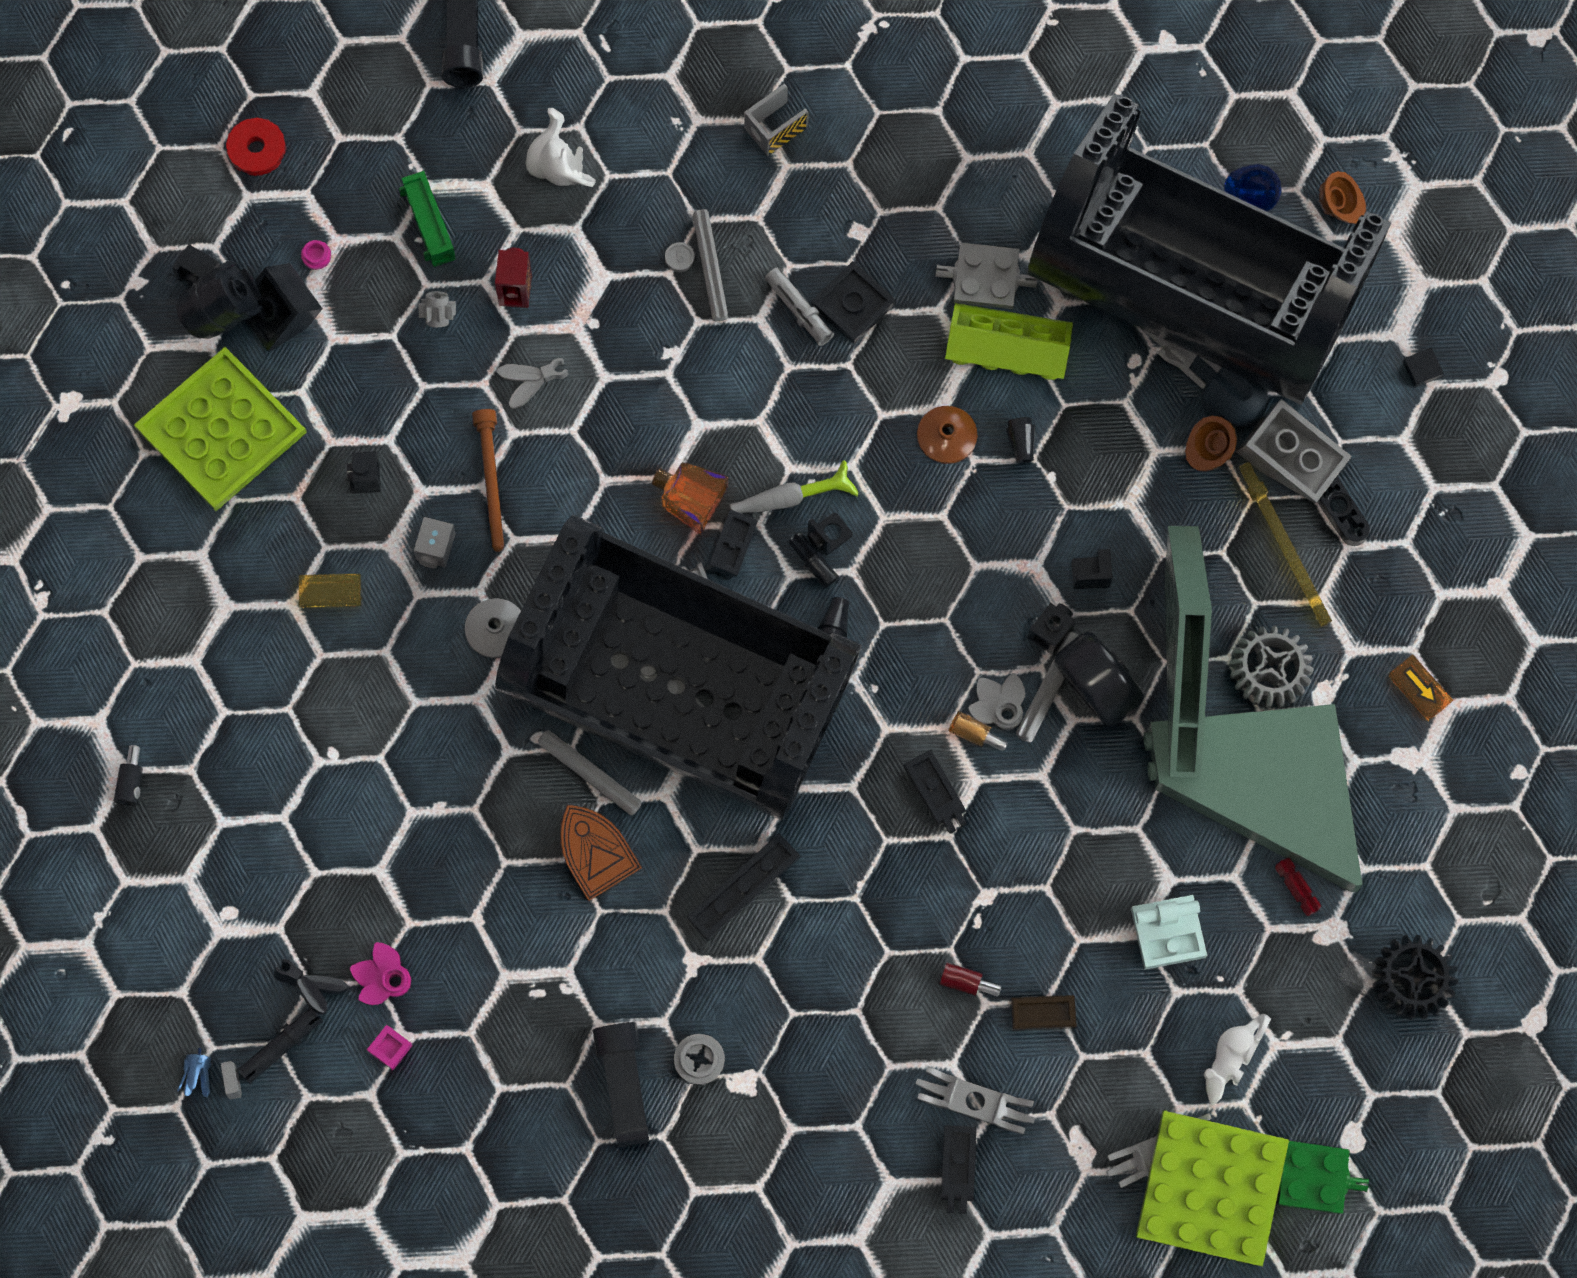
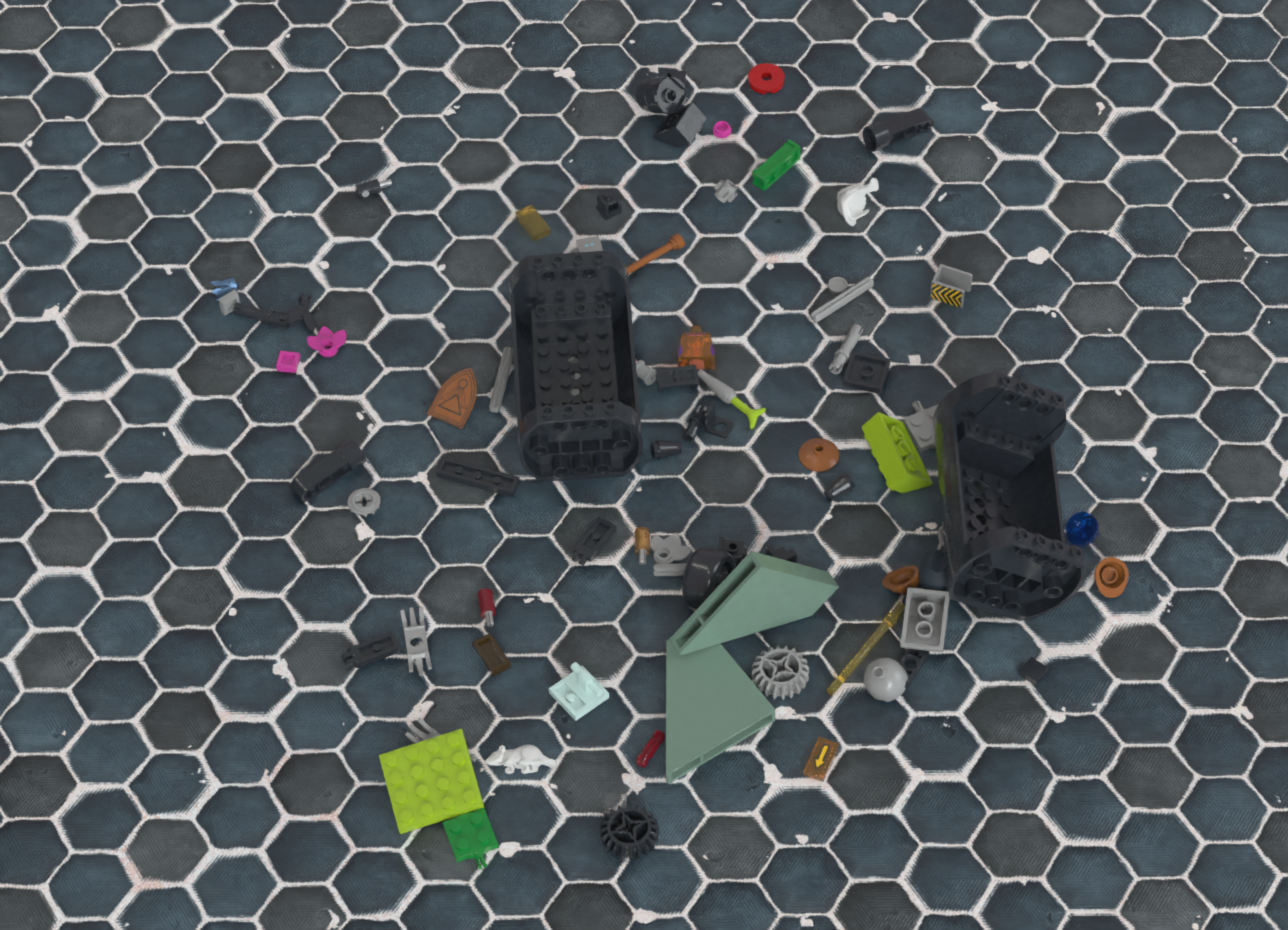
camera: 65 degrees right, 20 degrees down
(220, 428) = (593, 135): lime plate -> none
(513, 278) = (765, 211): dark red brick -> none
(531, 377) = (716, 253): light grey piece -> none
(1352, 547) = (885, 679): none -> light grey cylinder

